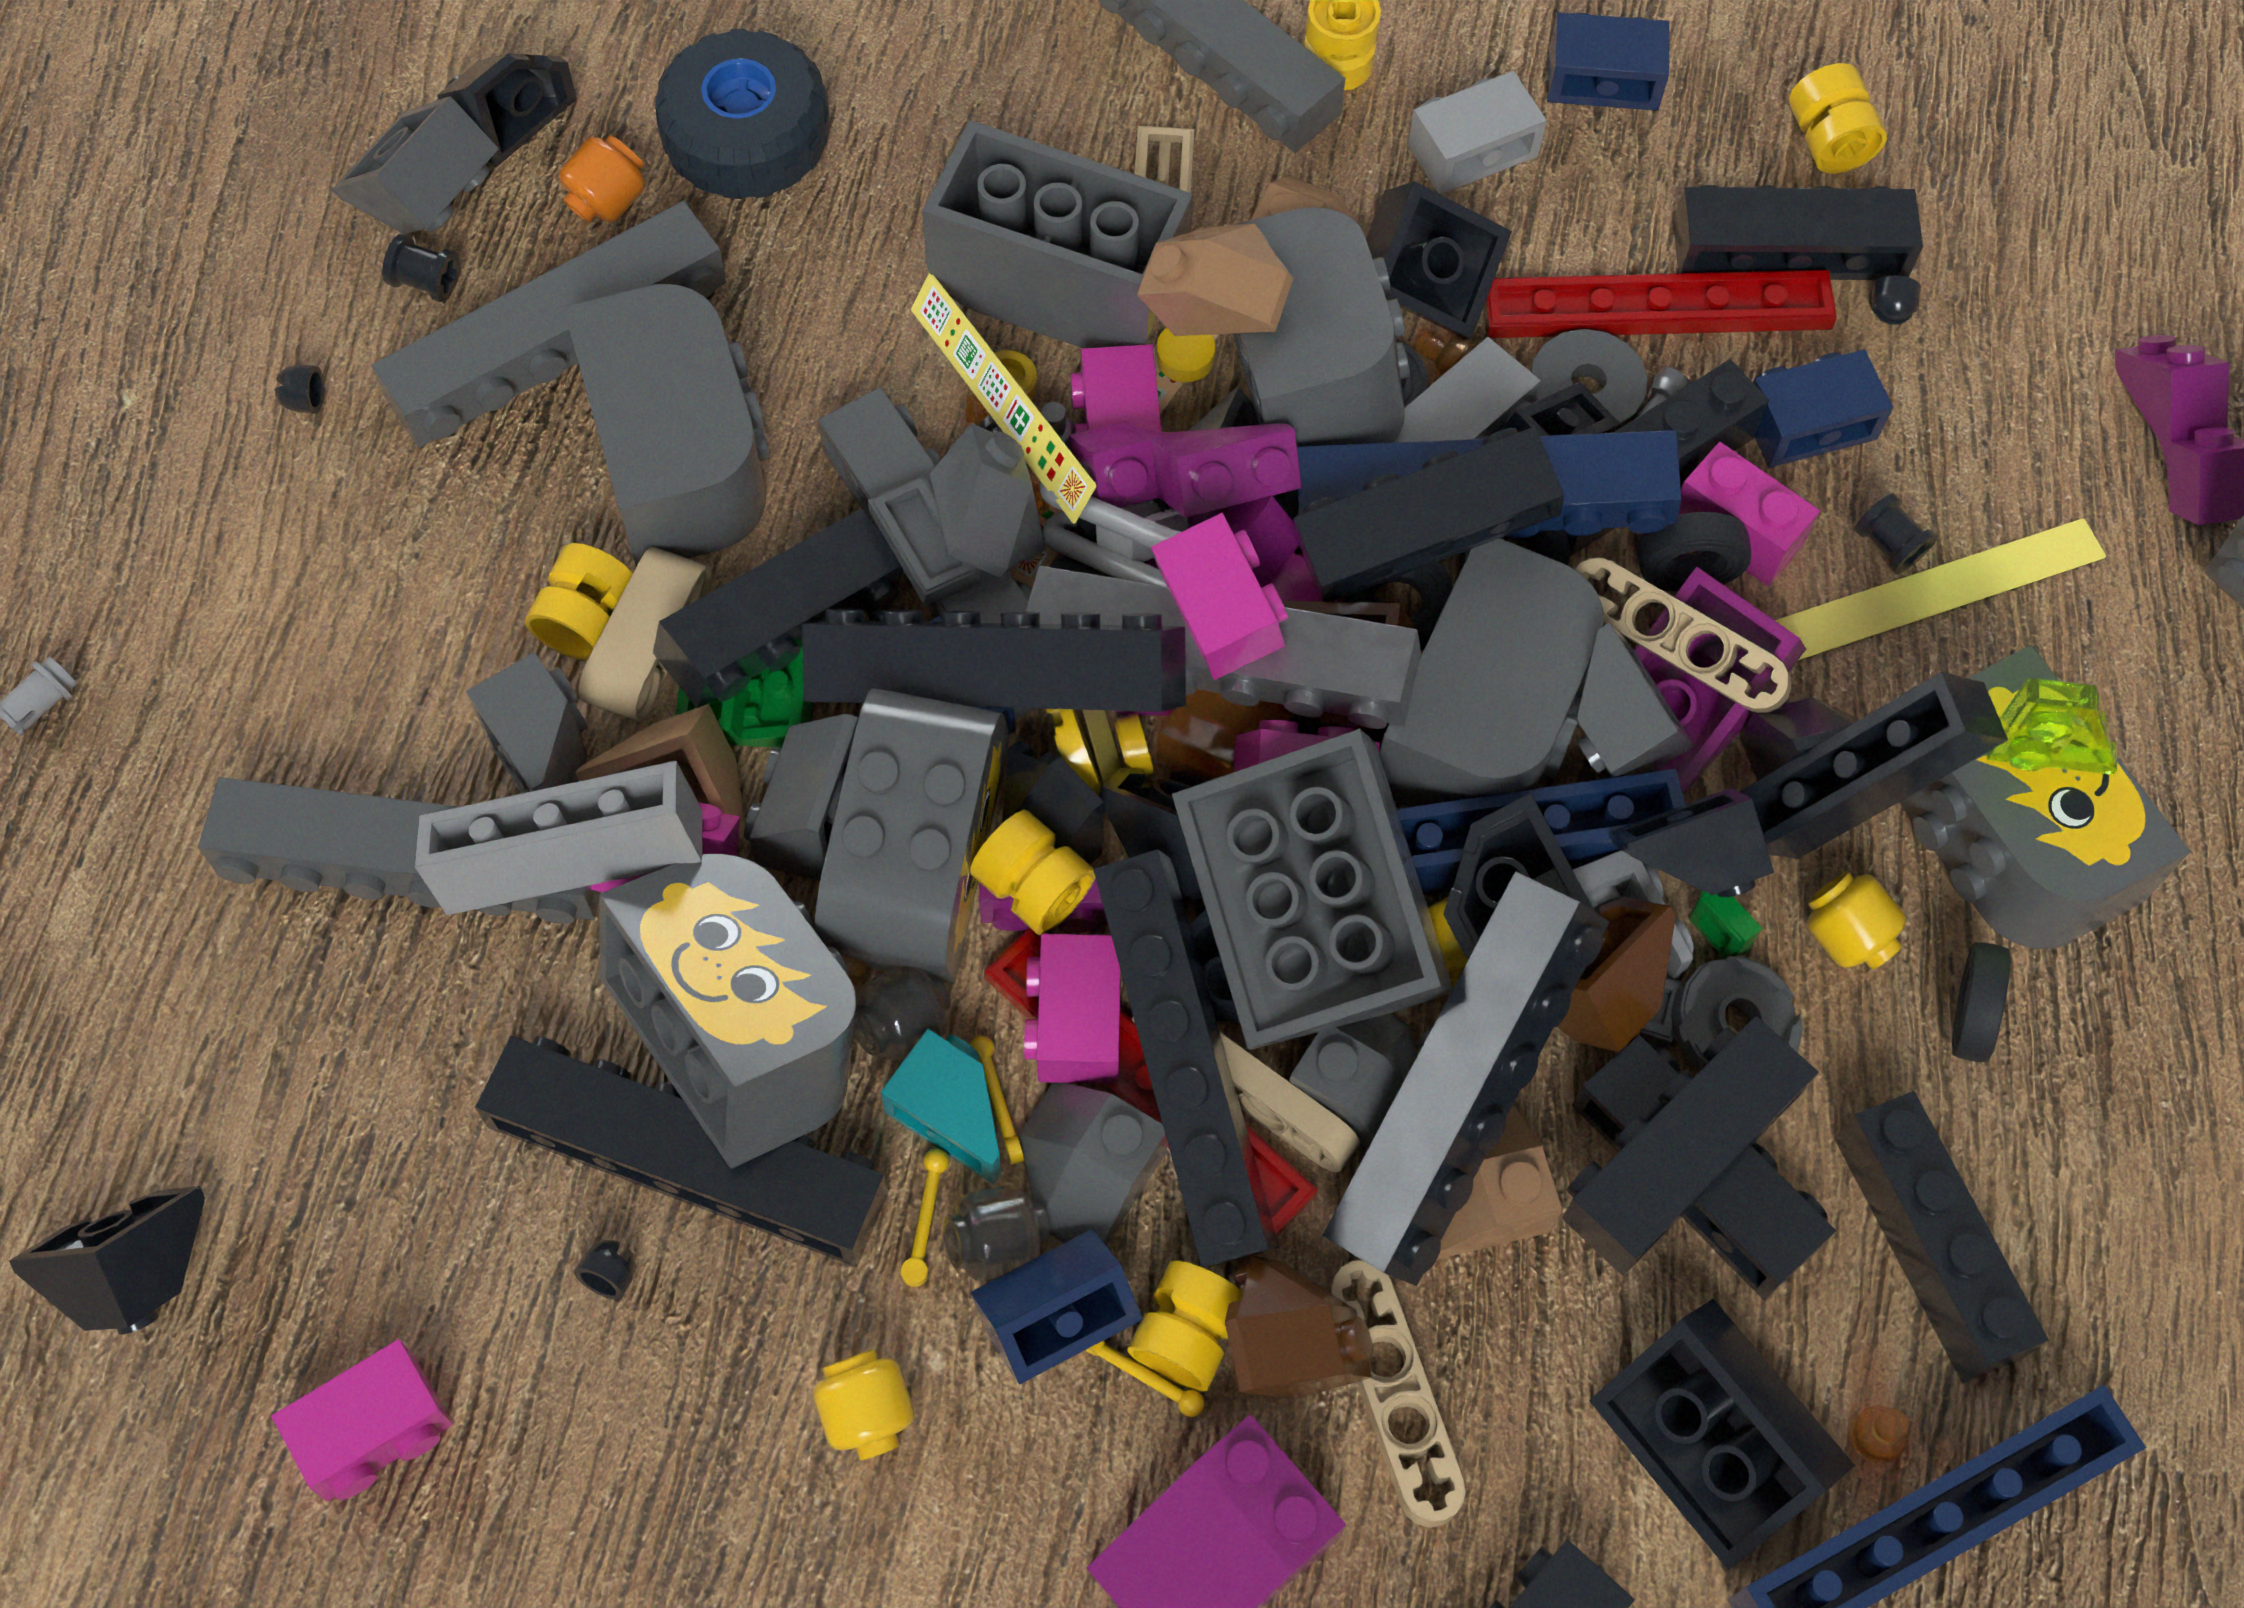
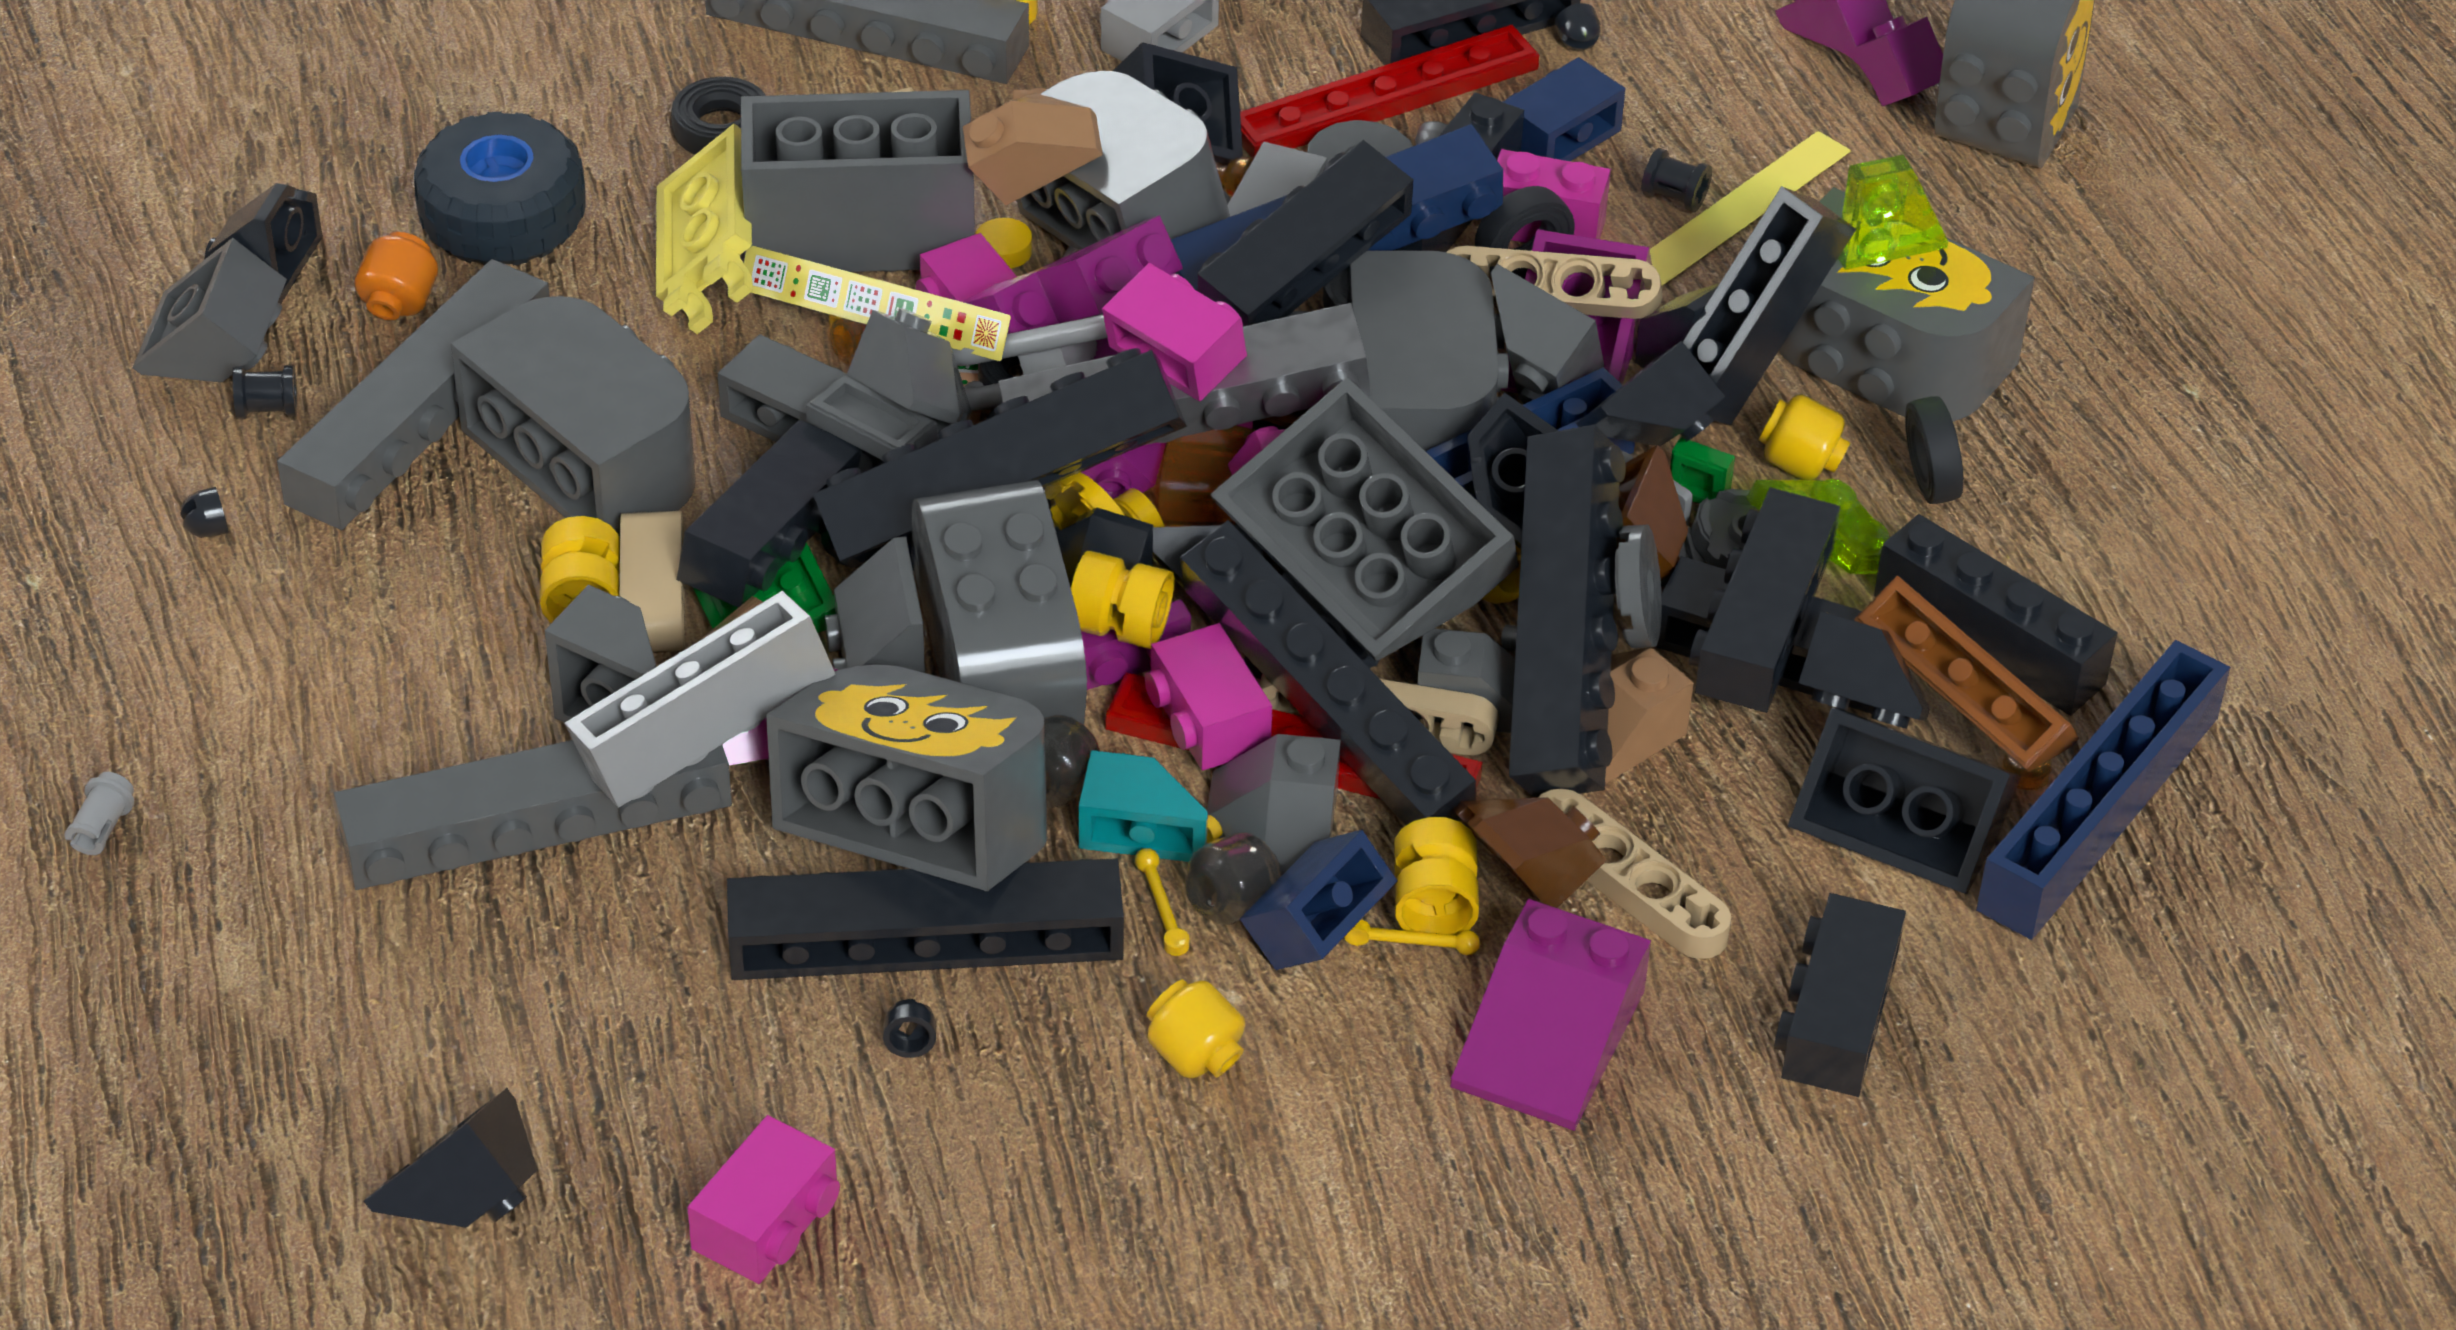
camera: 25 degrees left, 20 degrees down
(888, 248) = (702, 230): none -> light yellow tile
(1000, 68) = (704, 98): none -> black tyre
(1556, 1082) = (1639, 585): none -> dark grey tile
(1748, 1275) = (1861, 665): none -> black slope
(1833, 1032) = (1857, 534): none -> clear neon green wing
(1855, 1327) = (1969, 677): none -> dark orange slope

